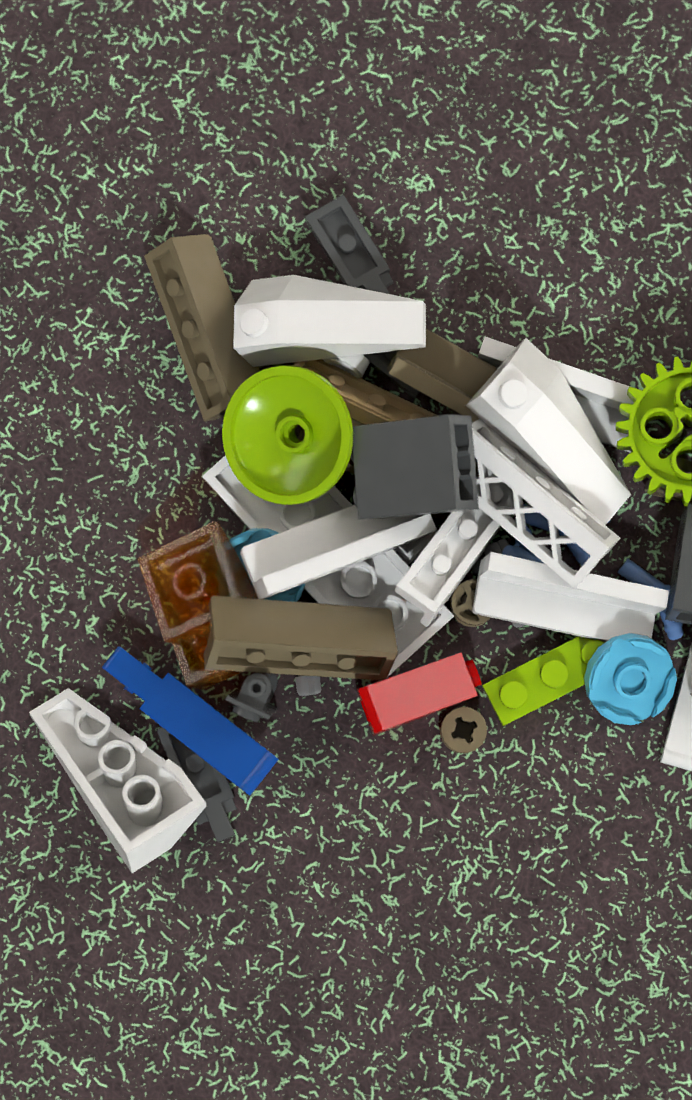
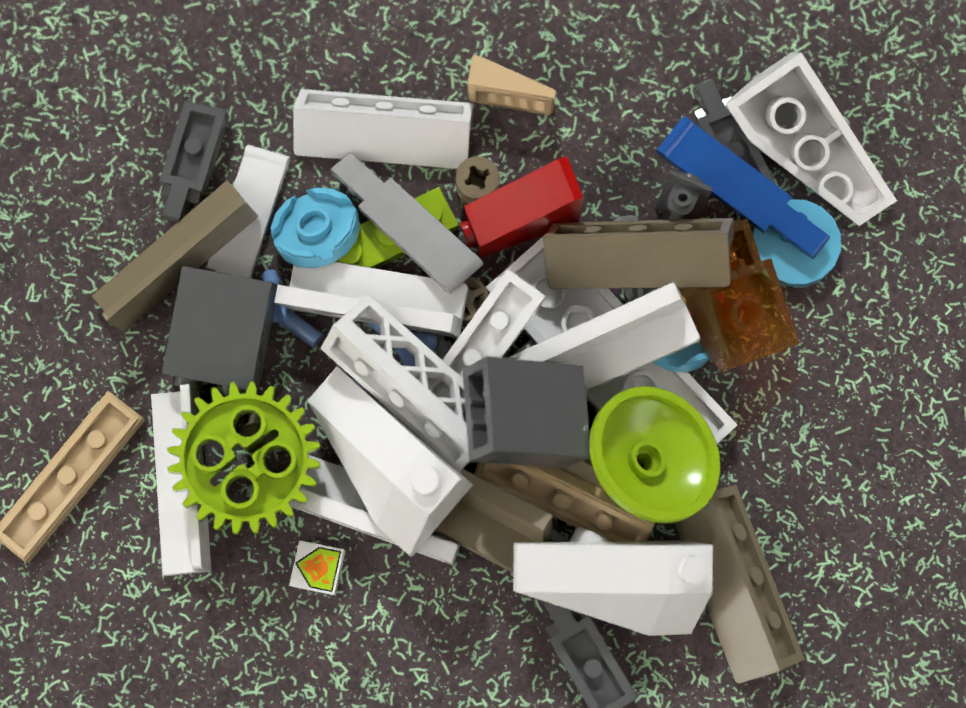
camera: 175 degrees left, 5 degrees down
(142, 643) = (791, 264): none -> medium azure tile
(444, 836) = (505, 88): none -> tan slope
(535, 678) = (408, 225): none -> light grey piece
(564, 792) = (382, 128): none -> white panel
(614, 339) = (317, 568): none -> tile

